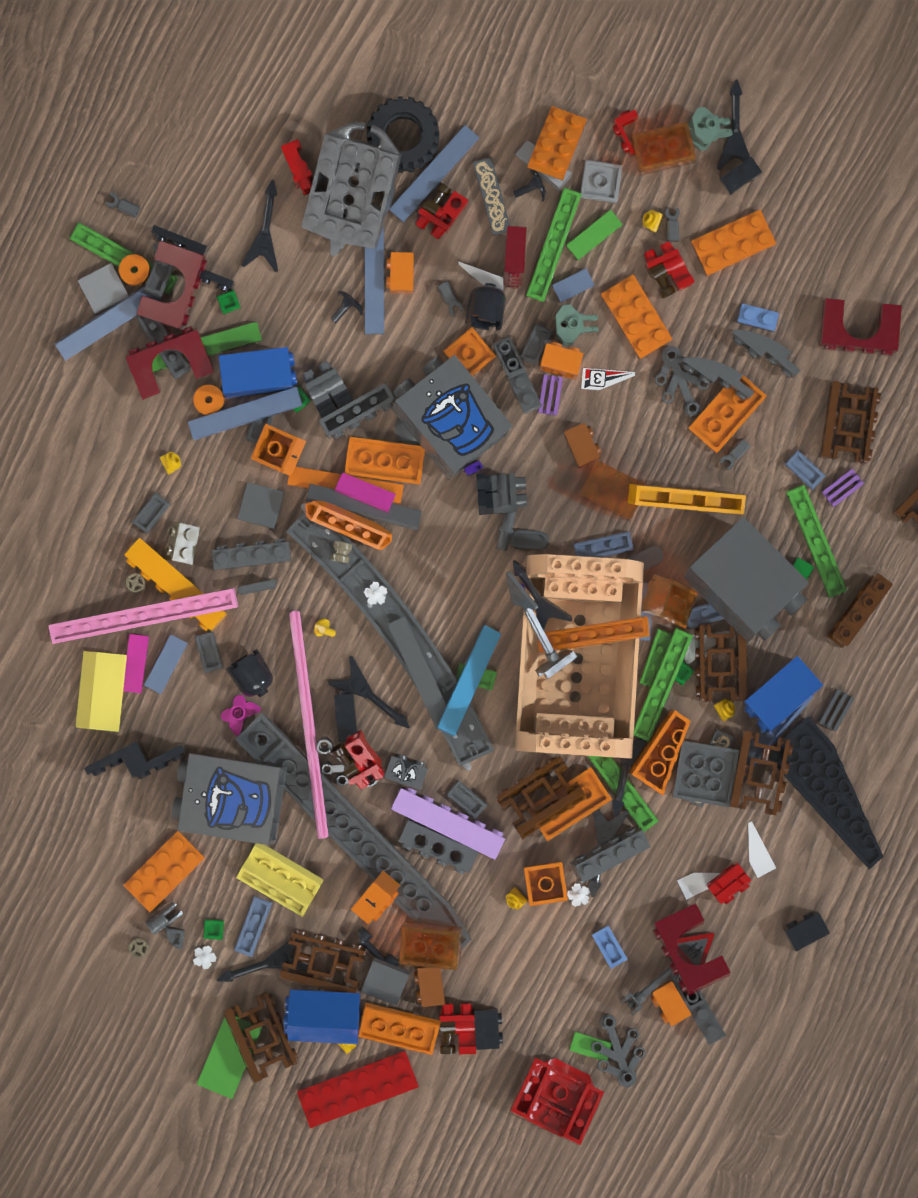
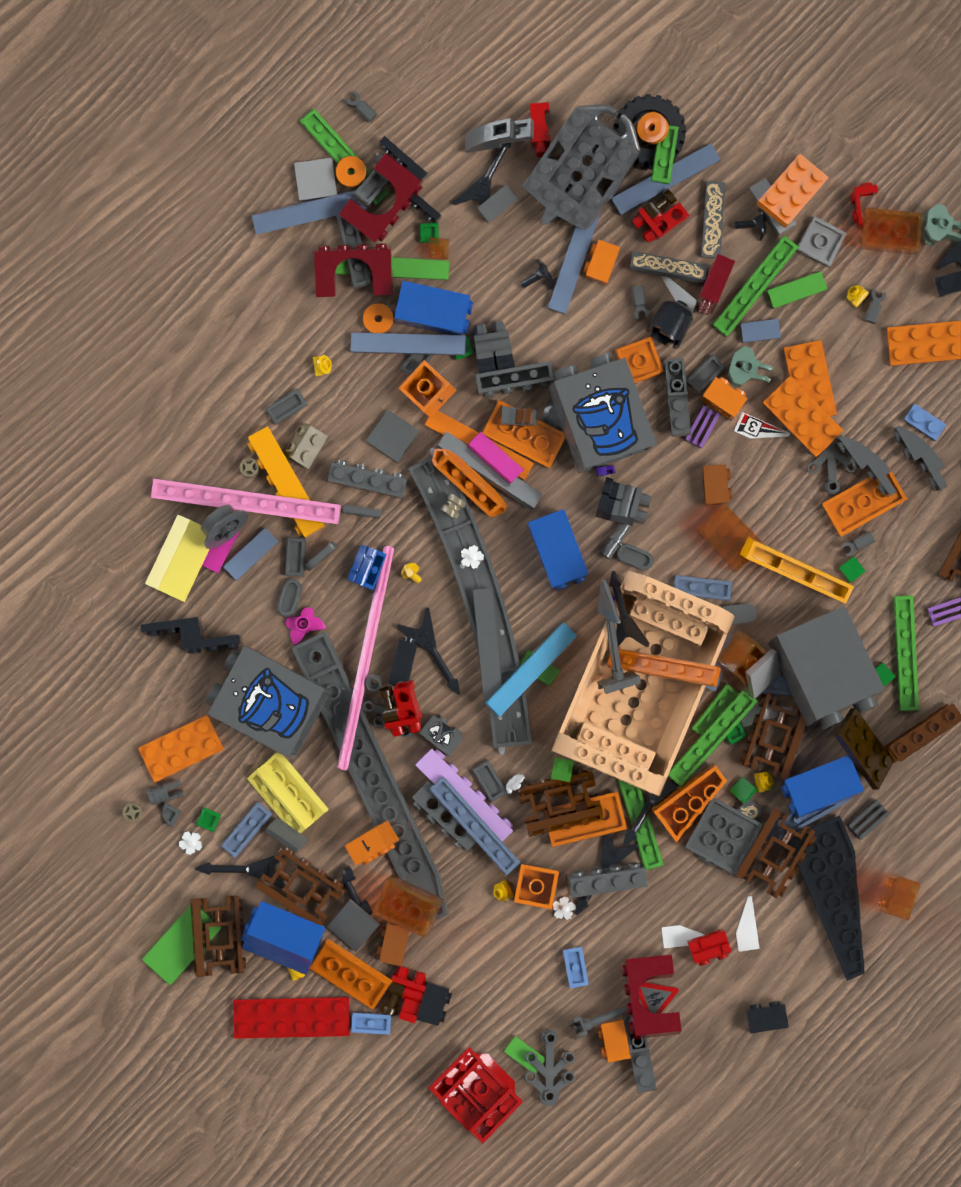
camera: 20 degrees right, 0 degrees up
(129, 646) = (222, 525): none -> dark grey wheel
(217, 692) = (290, 598): none -> dark grey tile
(233, 642) = (319, 557): none -> dark grey tile
(242, 313) = (438, 248): none -> clear orange tile
(251, 674) = (328, 592): black cylinder -> none
(260, 185) = (498, 133): none -> dark grey slope
(280, 638) = (367, 567): none -> blue brick
(282, 252) = (497, 203): none -> dark grey tile
(292, 918) = (286, 835): none -> dark grey tile
(373, 446) = (518, 417): none -> leg
(397, 125) = (660, 131): none -> orange piece
(424, 150) = (664, 157): none -> bright green tile
(435, 1068) = (371, 1023): none -> medium blue plate
(455, 558) = (558, 550): none -> blue brick
(465, 255) = (668, 267): none -> dark grey tile
(467, 846) = (474, 825): none -> sand blue tile
(491, 793) = (514, 783): none -> white plant
(531, 764) = (562, 769): none -> bright green bracket
(641, 352) = (802, 416): none -> orange plate
(668, 264) = (855, 342): red hips -> none
(689, 607) = (763, 673): none -> light grey tile
(709, 724) = (743, 790): none -> green tile
(738, 480) = (852, 569): none -> green tile
(804, 470) = (918, 582): sand blue tile -> none
(809, 645) = (864, 748): none -> dark brown plate
(891, 773) = (899, 896): none -> clear orange brick

